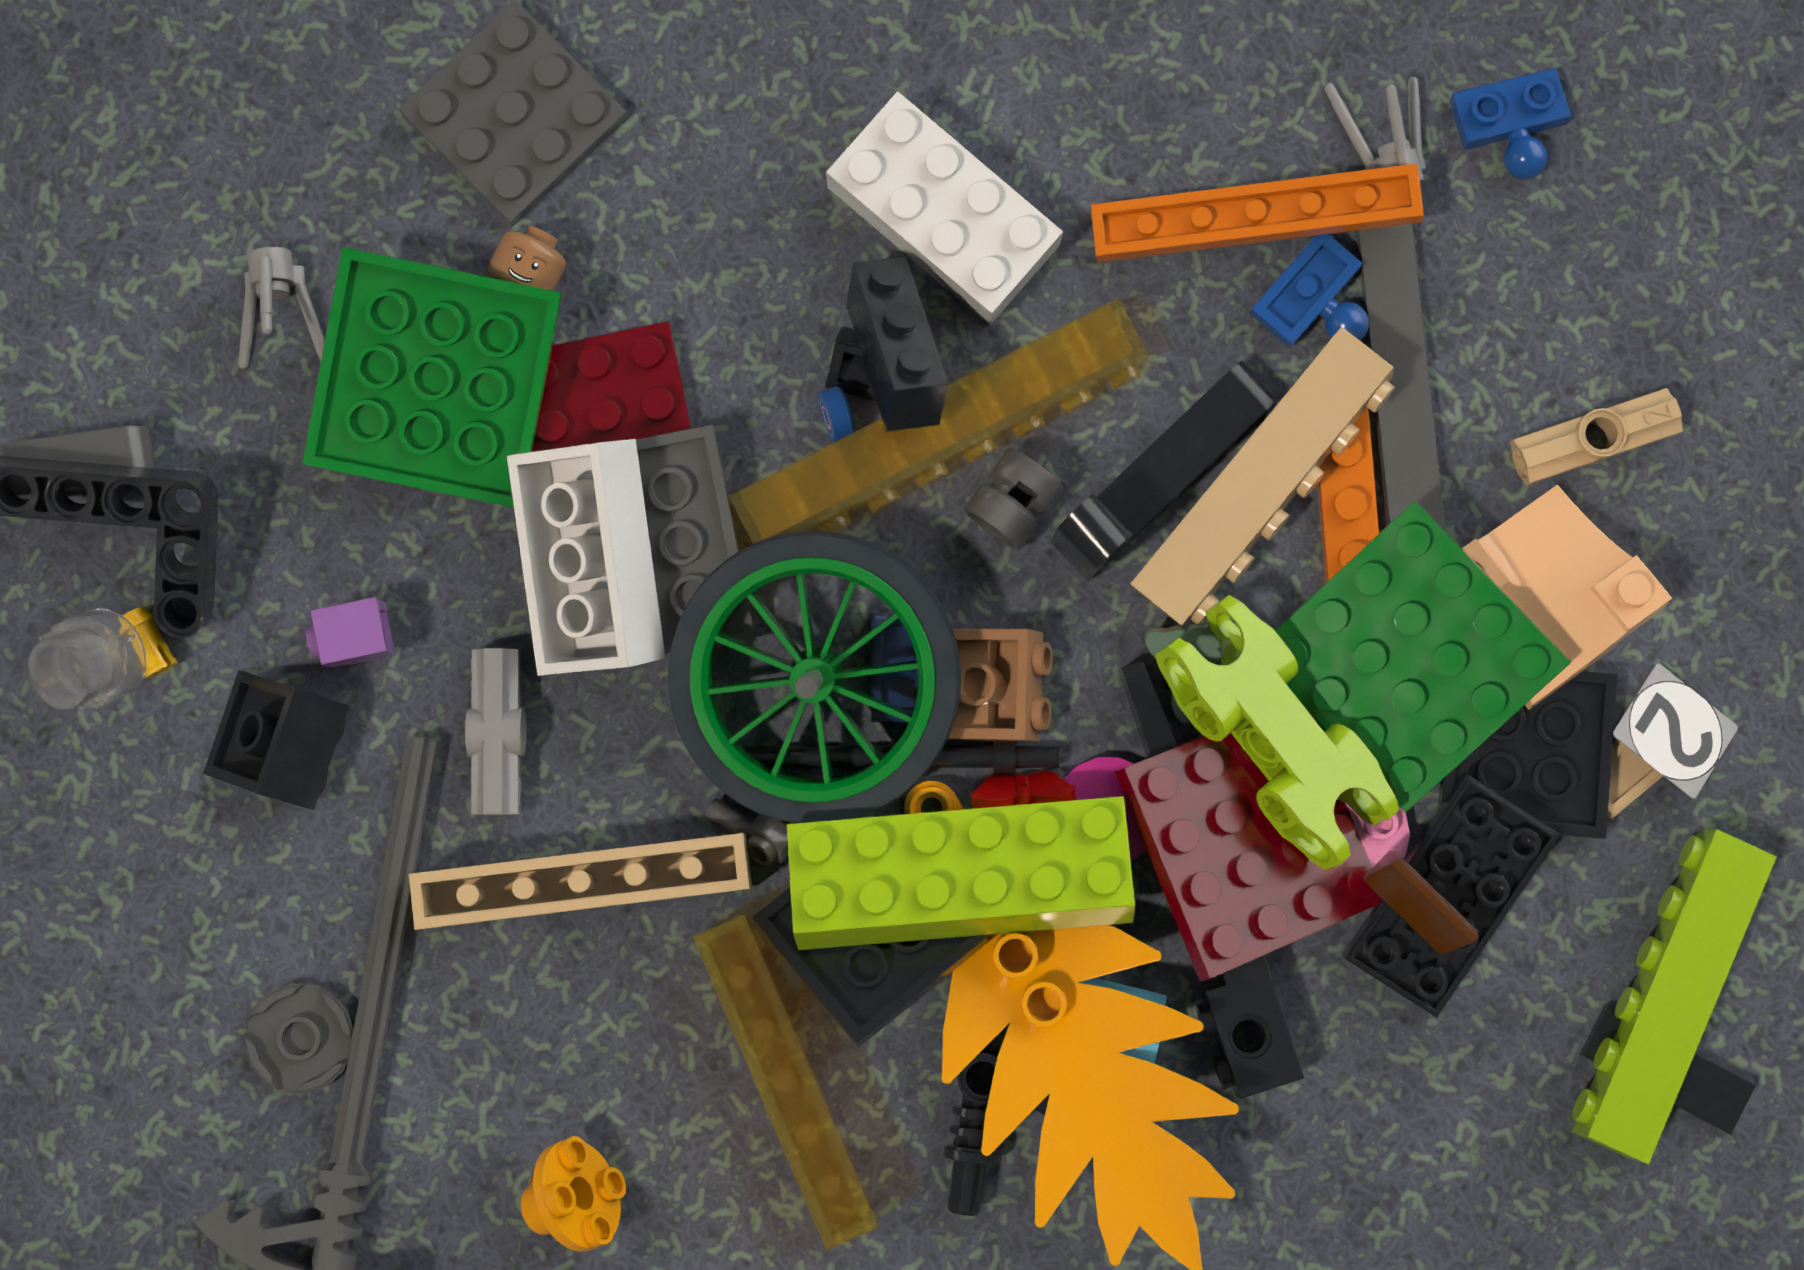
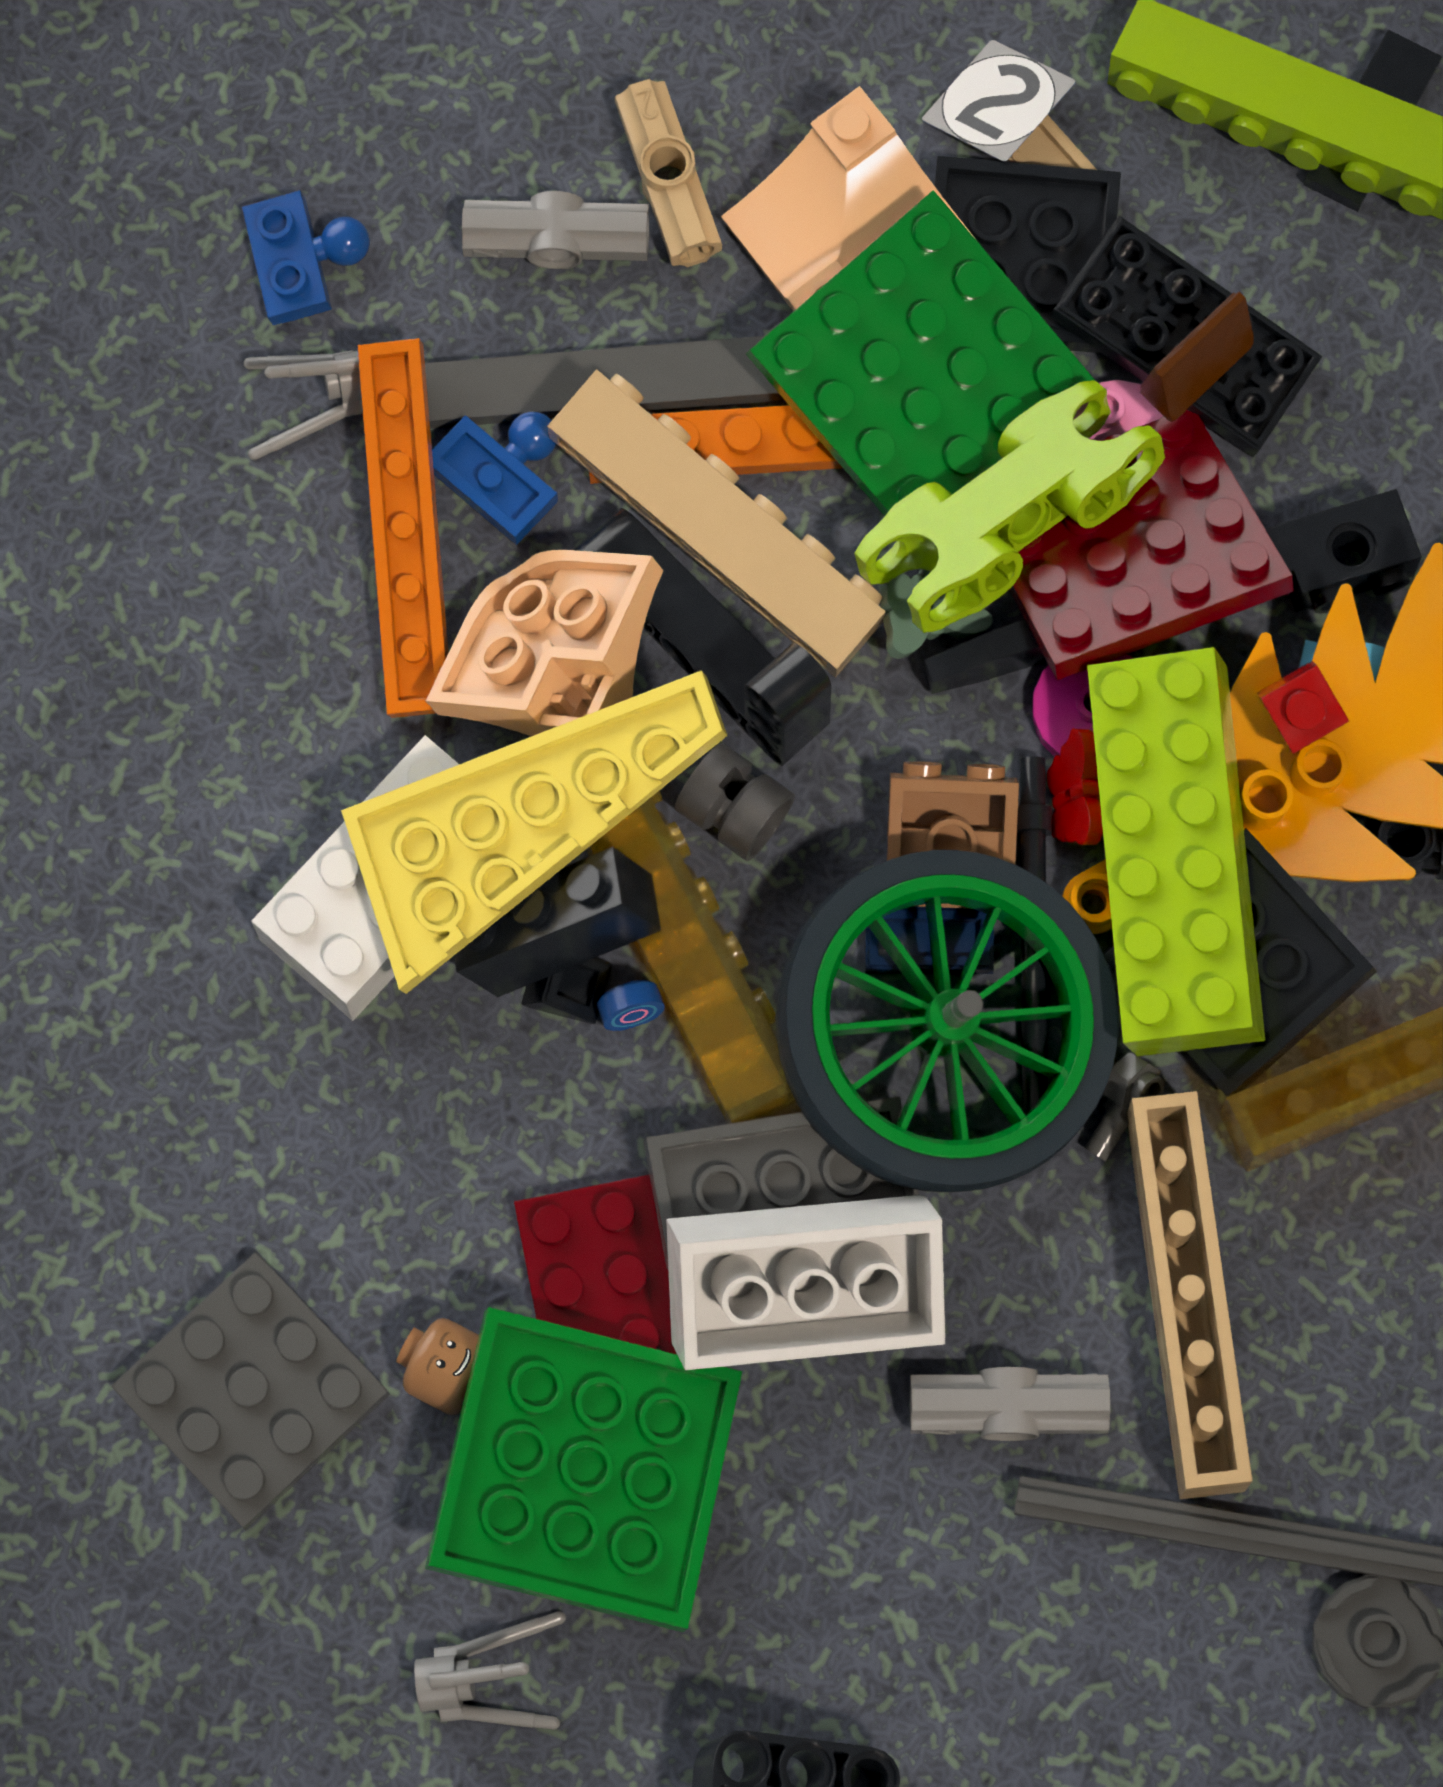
camera: 85 degrees left, 10 degrees down
(276, 740) = (1020, 1670): black slope -> none
(350, 633) = (892, 1574): medium lavender brick -> none
(964, 282) = (489, 832): none -> light yellow wing
(1090, 986) = (1303, 707): none -> red brick
(1139, 337) = (549, 641): none -> light nougat slope
(1539, 339) = (555, 230): none -> light grey piece

